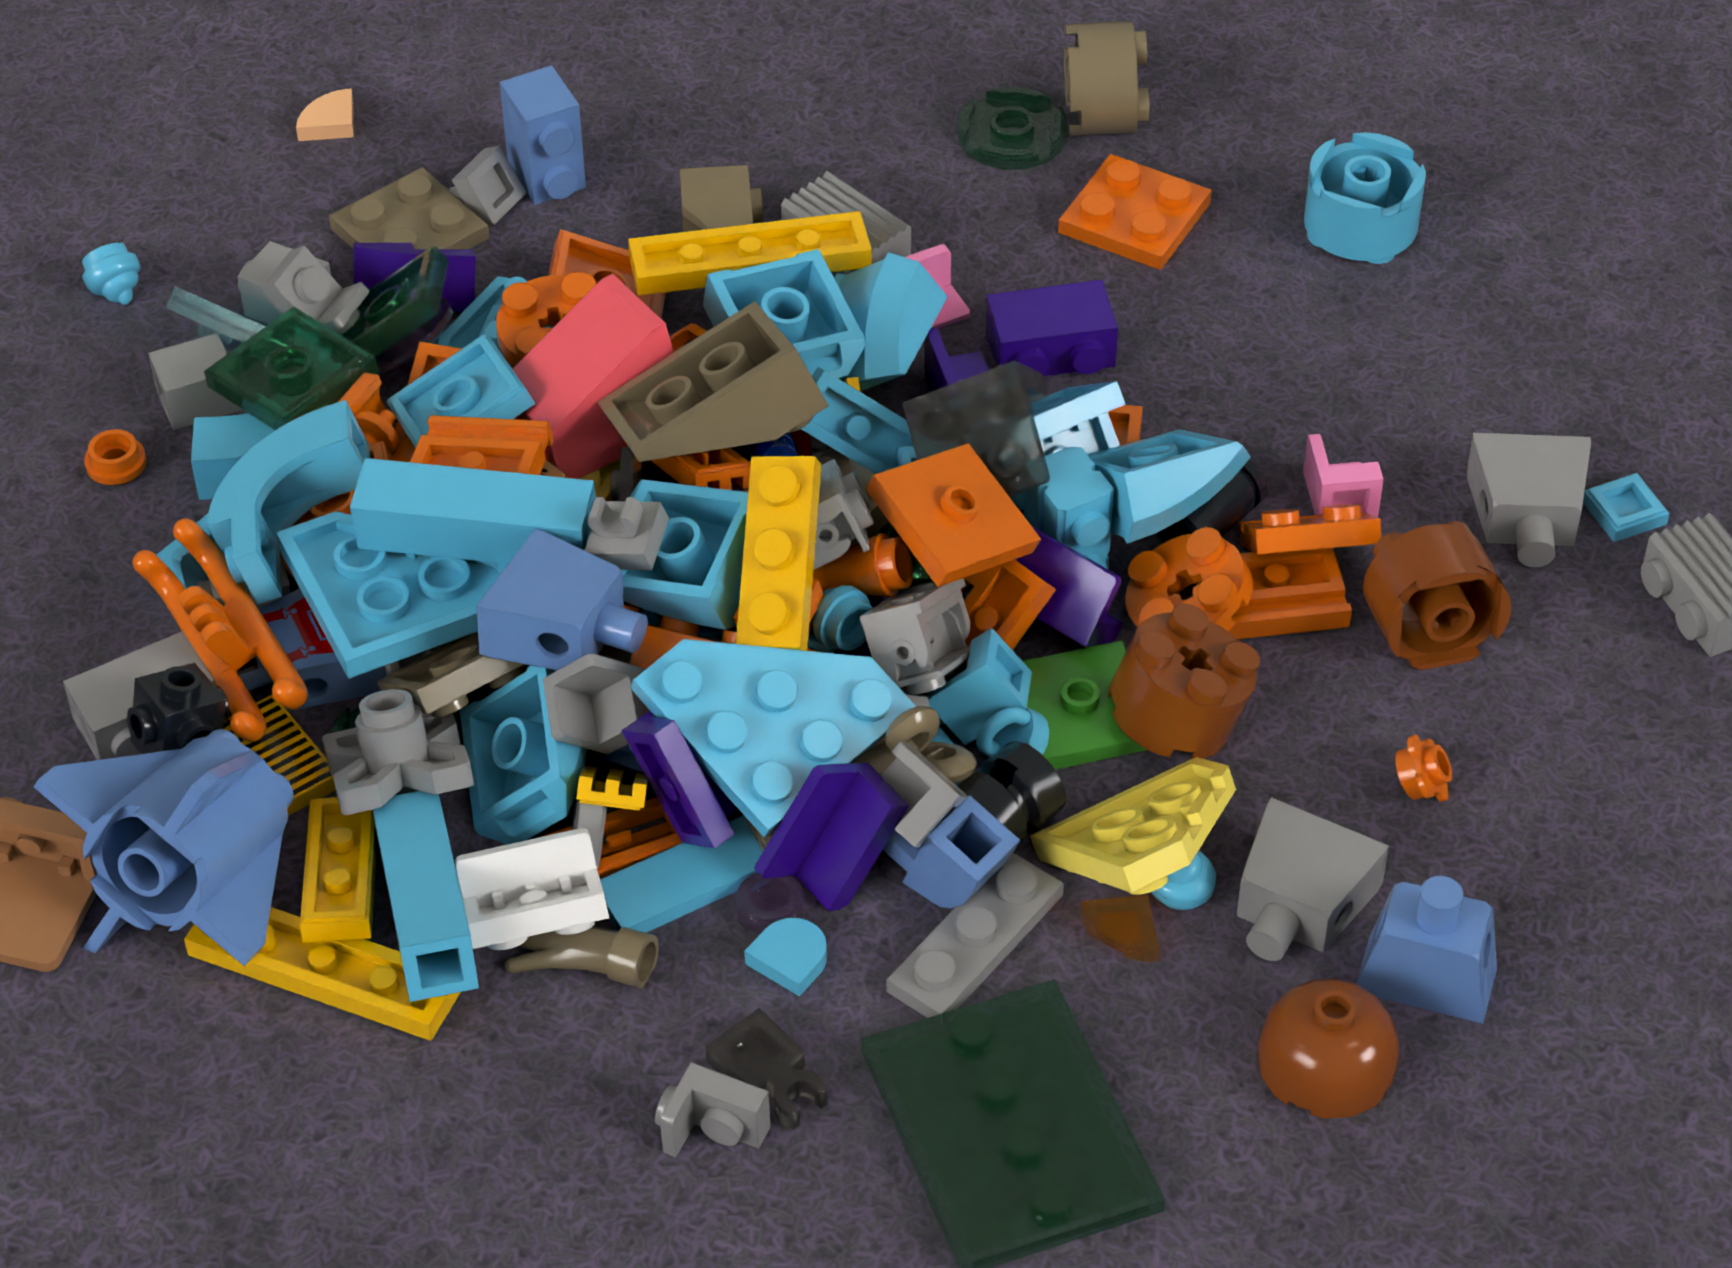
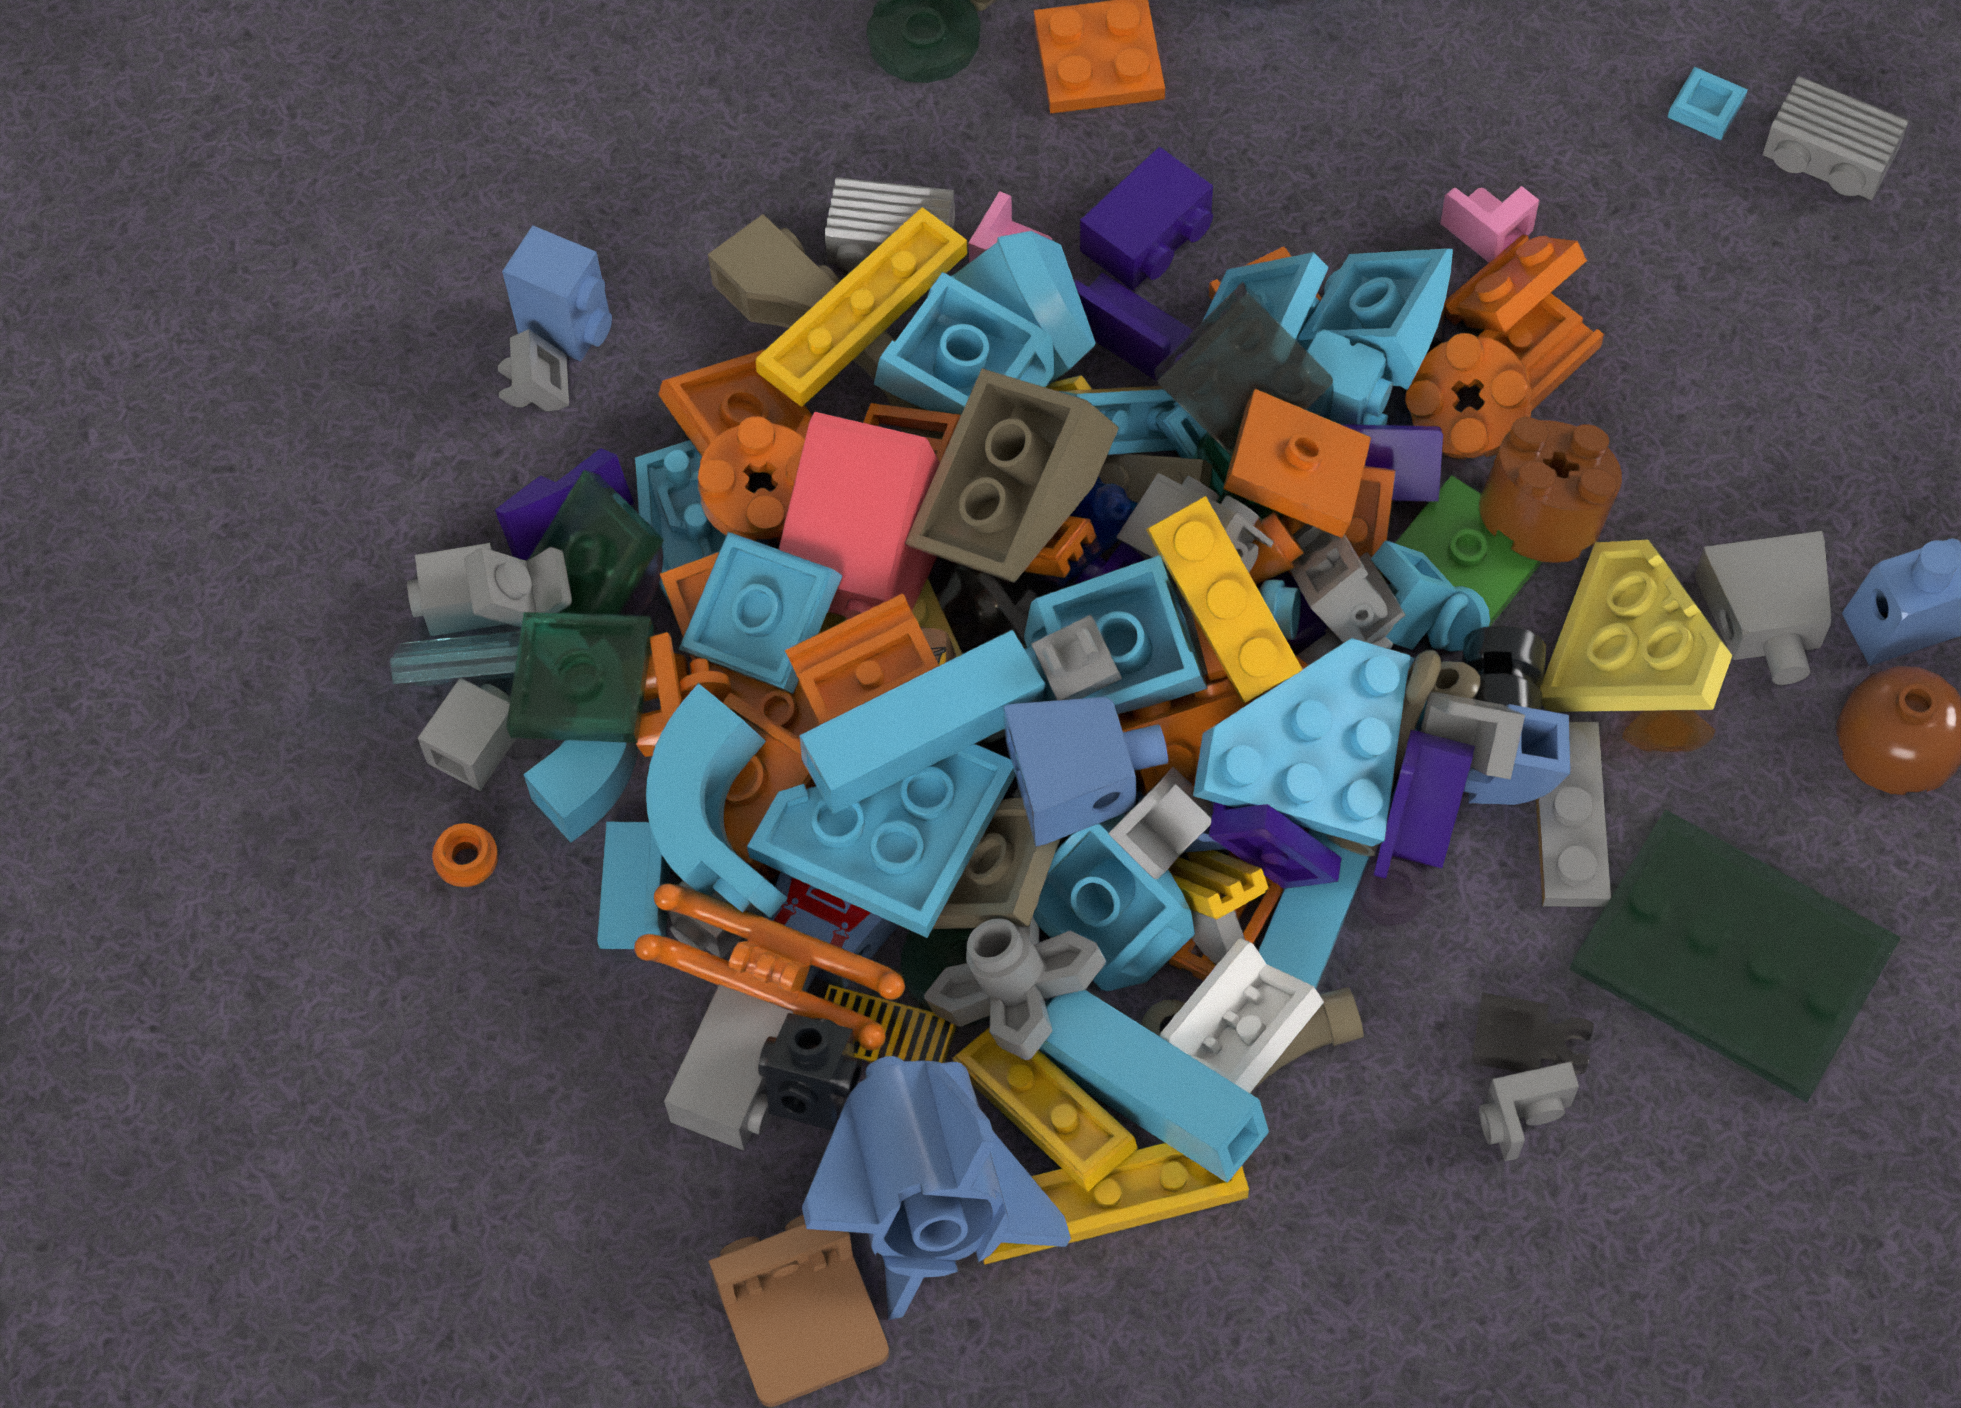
camera: 35 degrees left, 15 degrees up
(111, 272) = (279, 674): medium azure plate -> none
(327, 117) = (313, 387): light nougat tile -> none
(411, 211) = (493, 450): dark tan plate -> none
(789, 953) = (1449, 926): medium azure tile -> none
(1423, 769) = (1770, 441): orange plate -> none
(1435, 594) = (1663, 281): dark orange brick -> none
(1529, 490) = (1639, 137): light grey torso -> none

